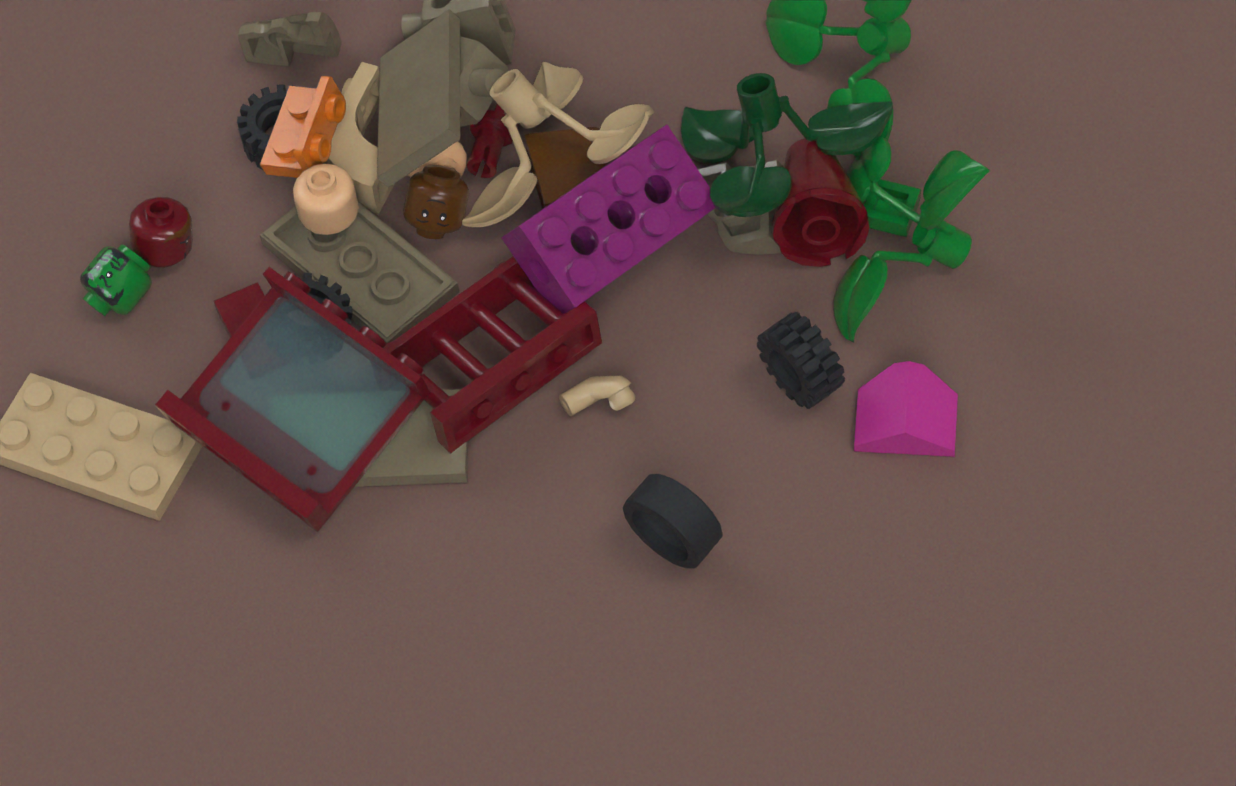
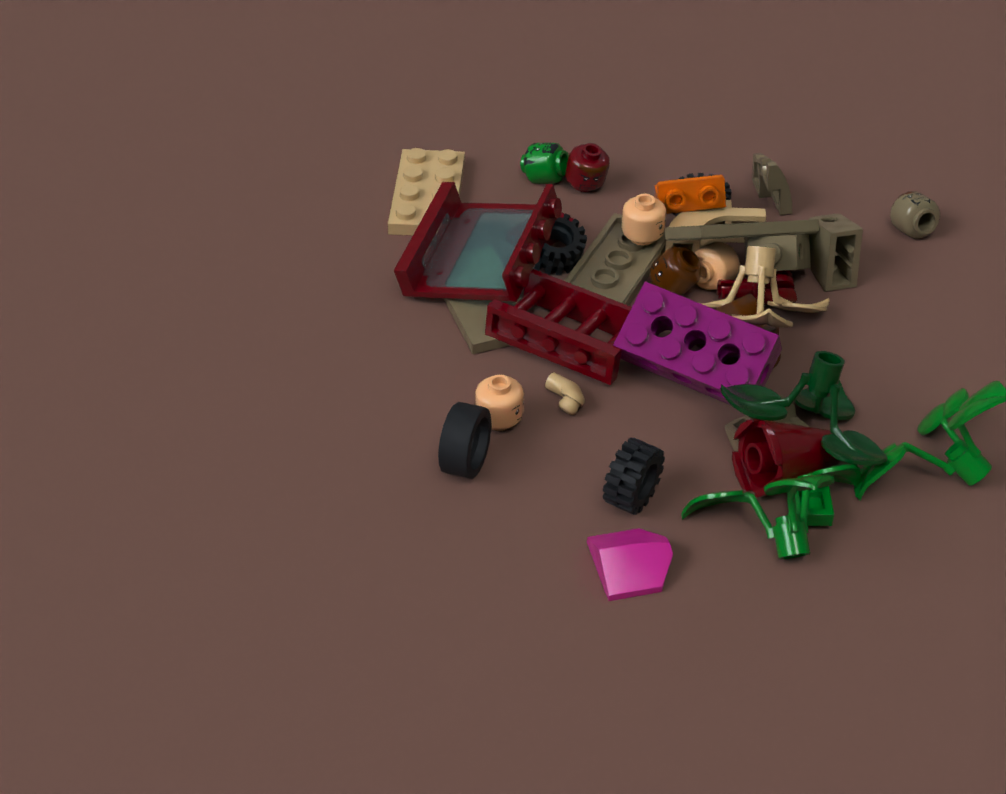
camera: 65 degrees right, 15 degrees down
(604, 468) = (503, 398): none -> light nougat head

